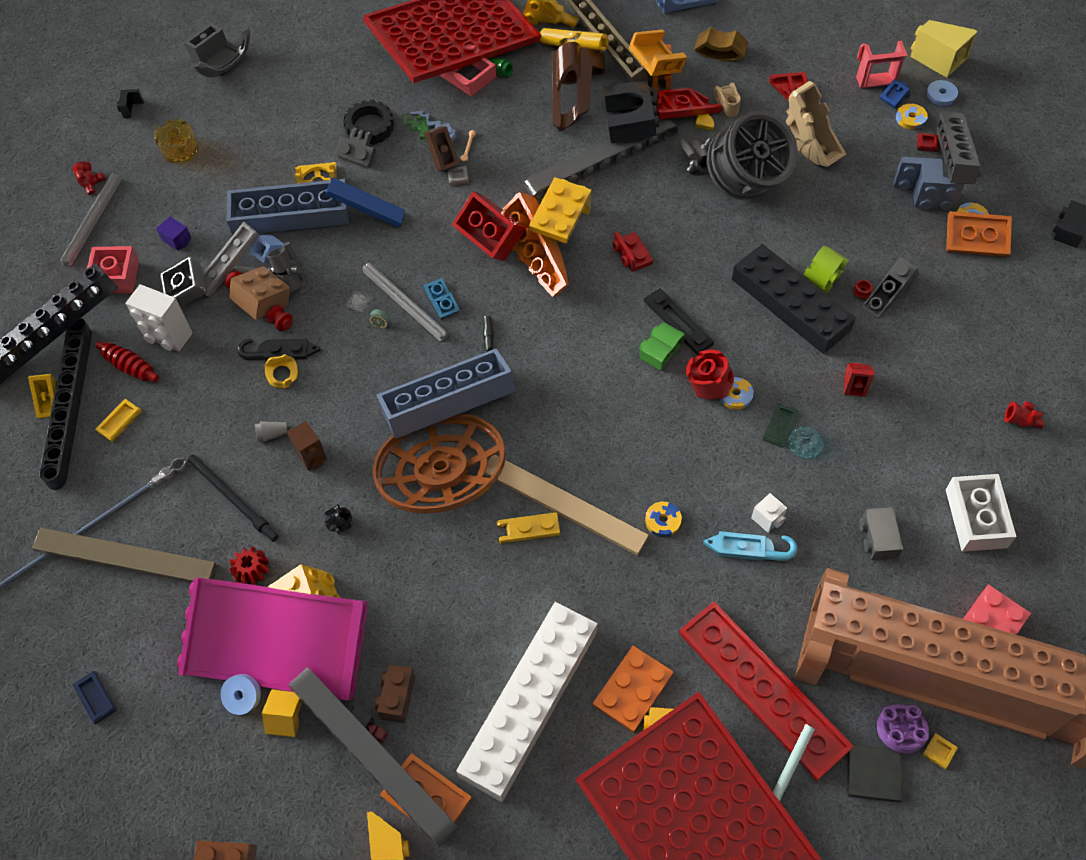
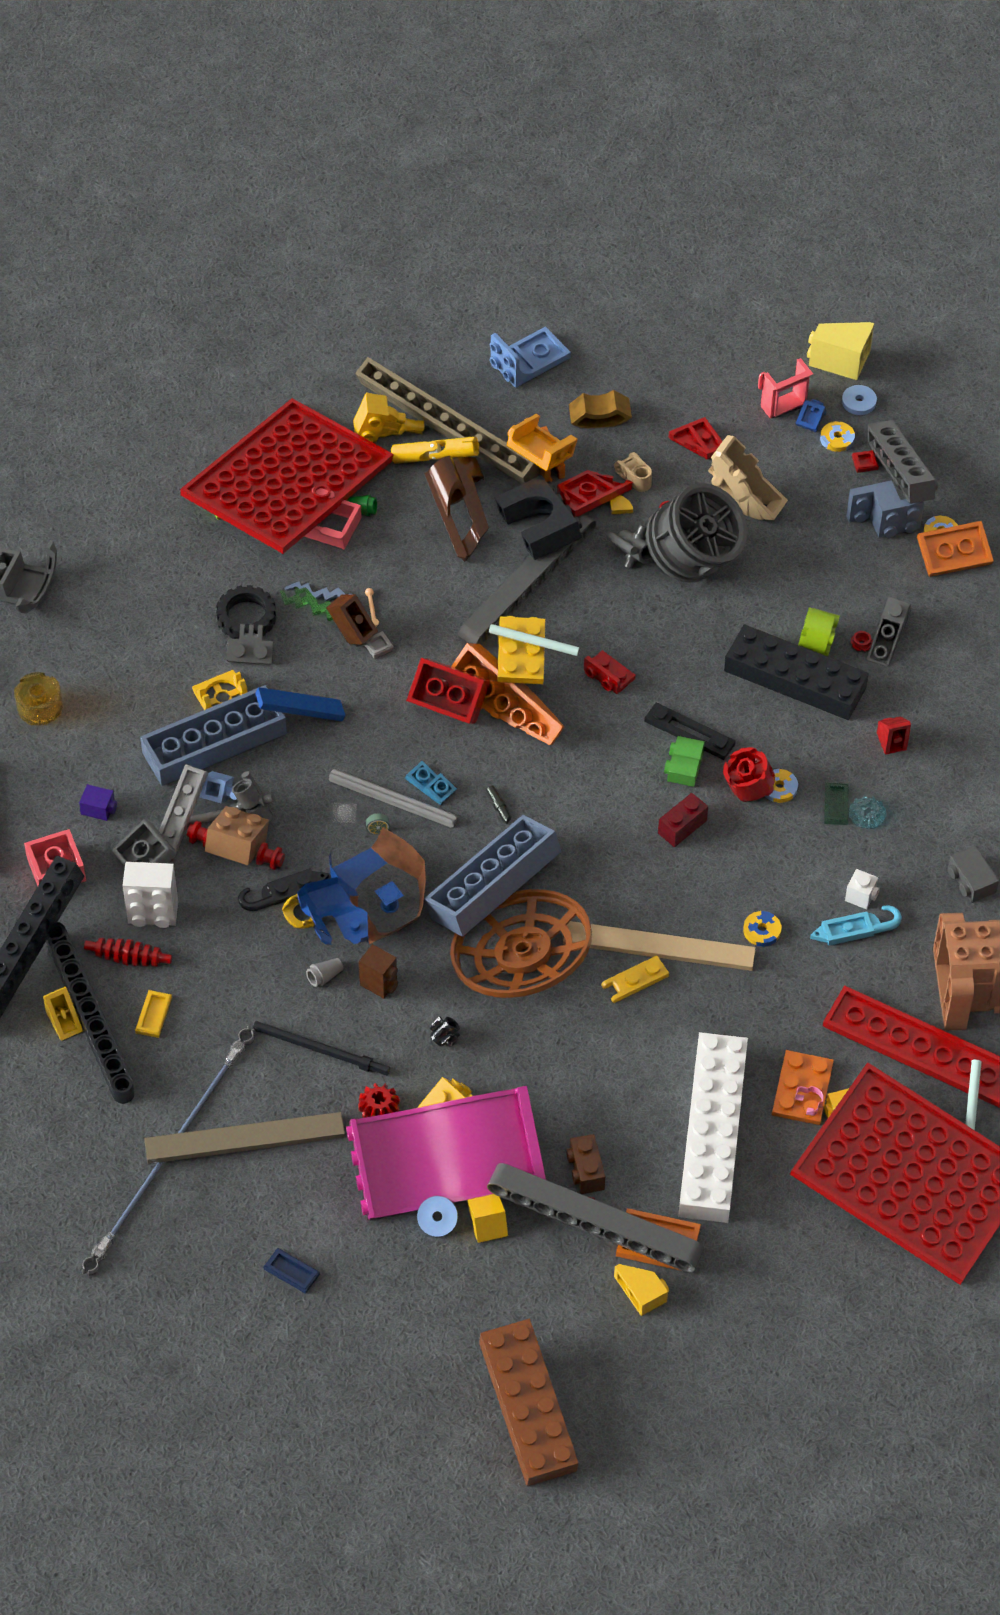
camera: 25 degrees left, 5 degrees down
(316, 369) = (340, 899): none -> blue piece
(571, 203) = (535, 640): none -> light aqua bar
(626, 718) = (810, 1111): none -> bright pink piece
(635, 396) = (683, 819): none -> dark red brick

